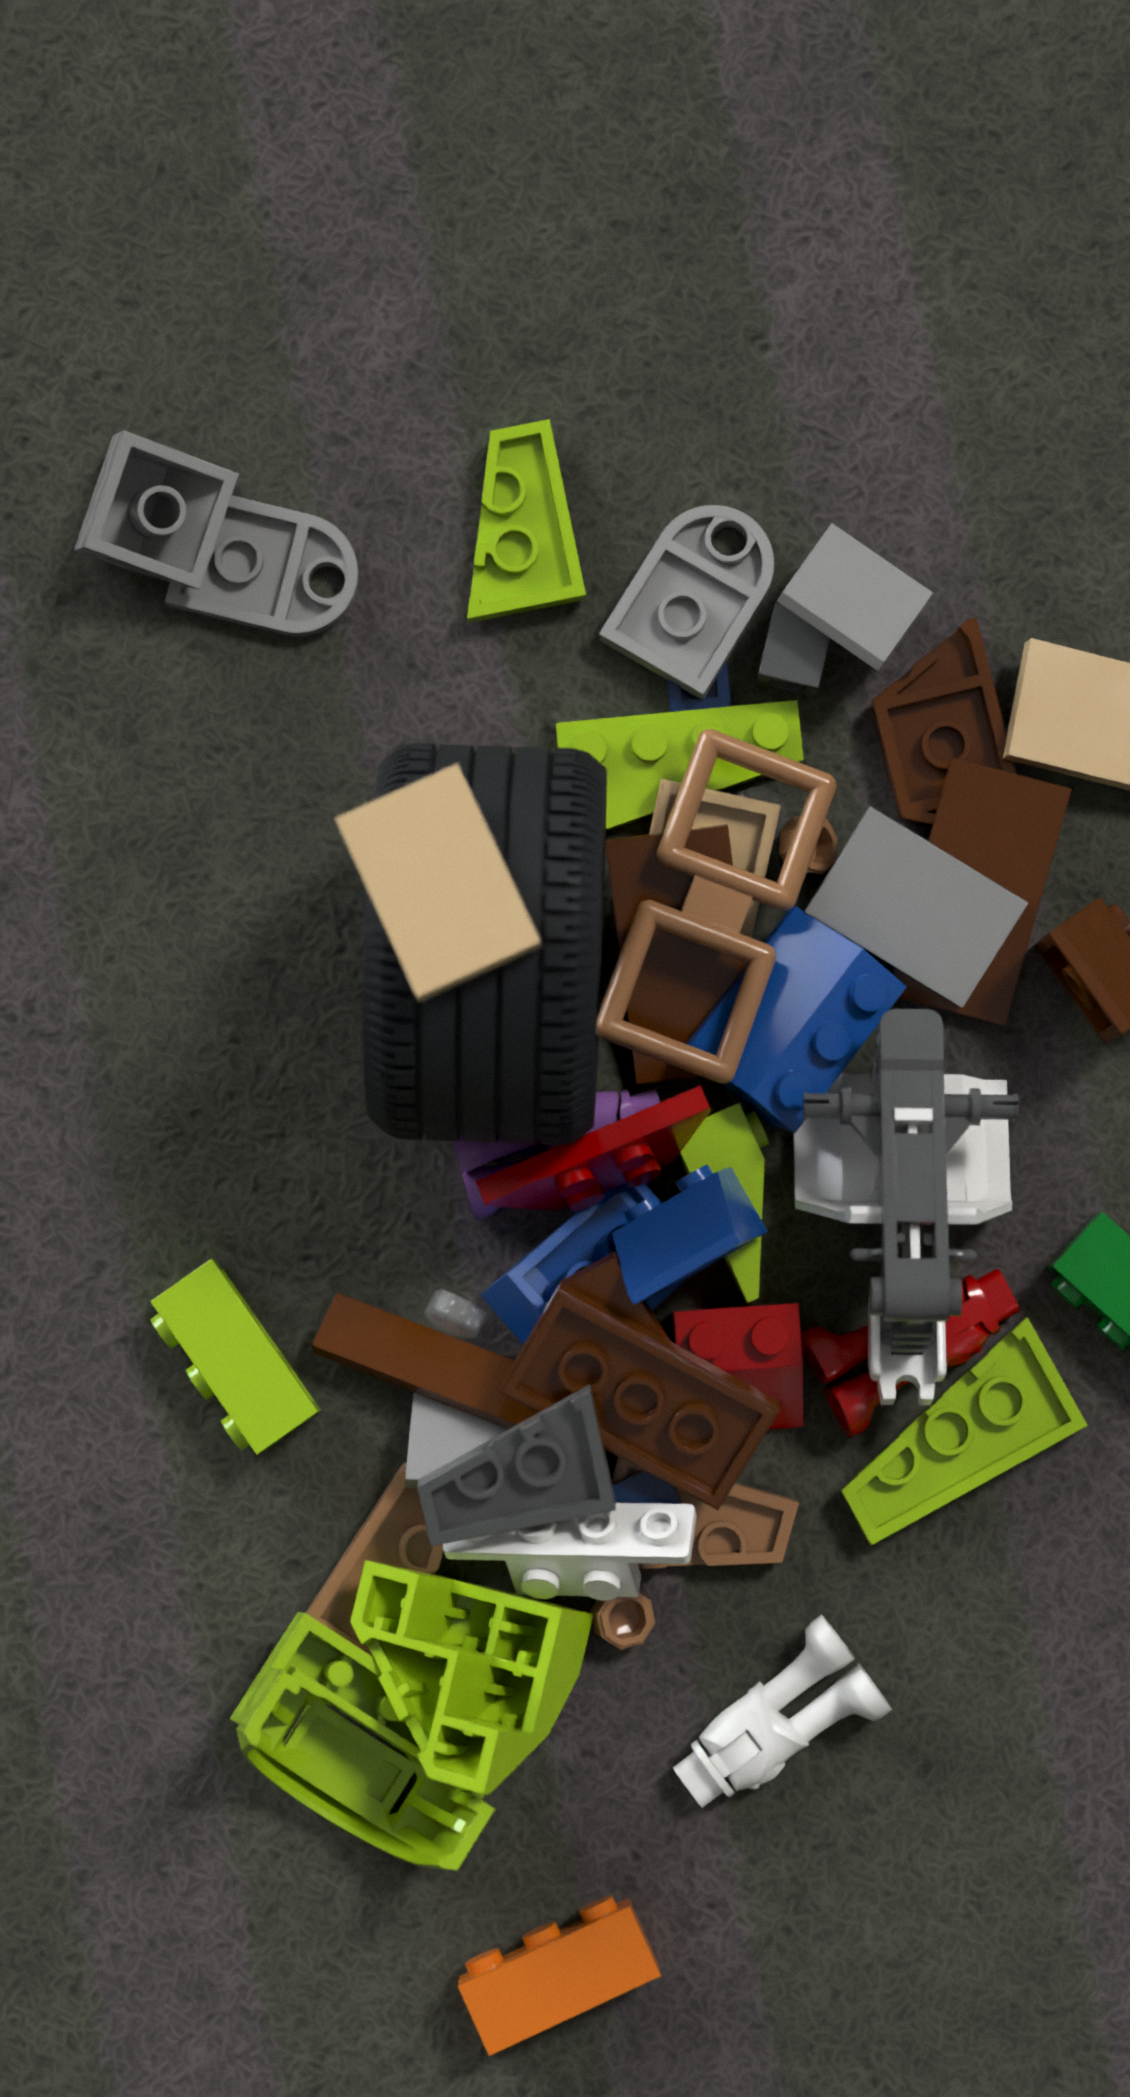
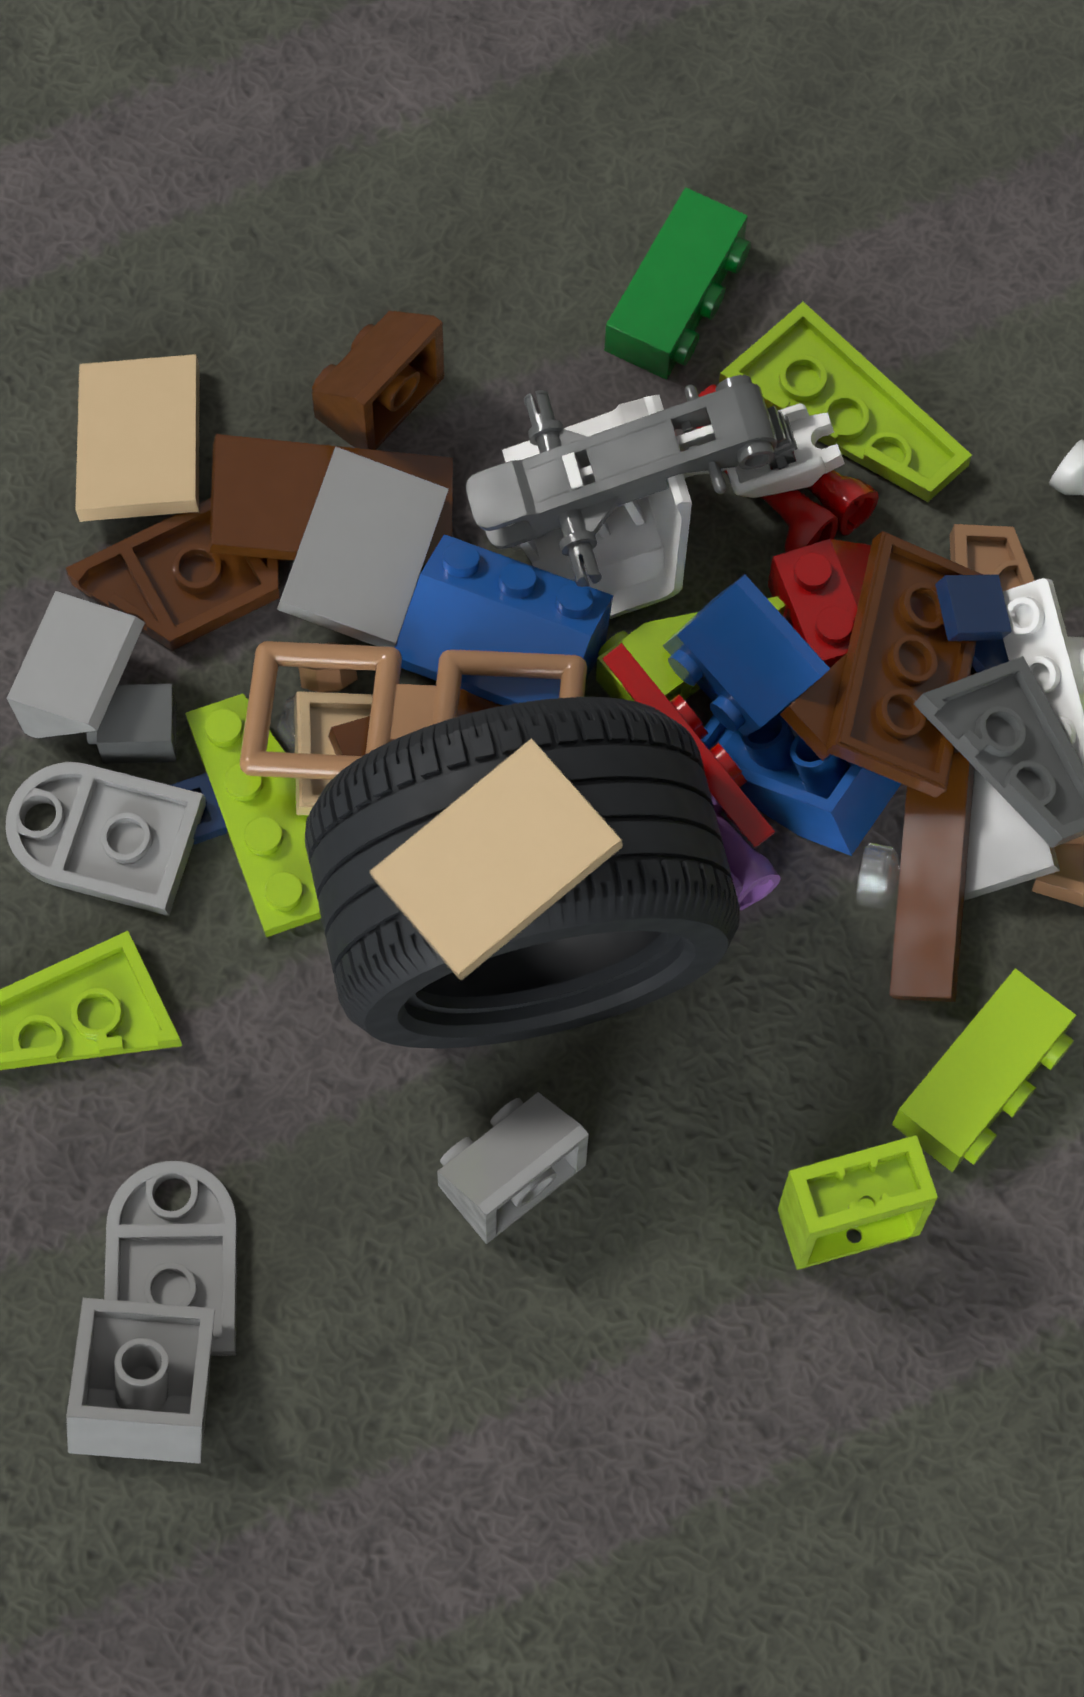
camera: 105 degrees left, 15 degrees down
(132, 1198) = (876, 1191): none -> lime window
(261, 889) = (513, 1164): none -> light grey slope
(679, 1477) = (973, 607): none -> dark blue tile

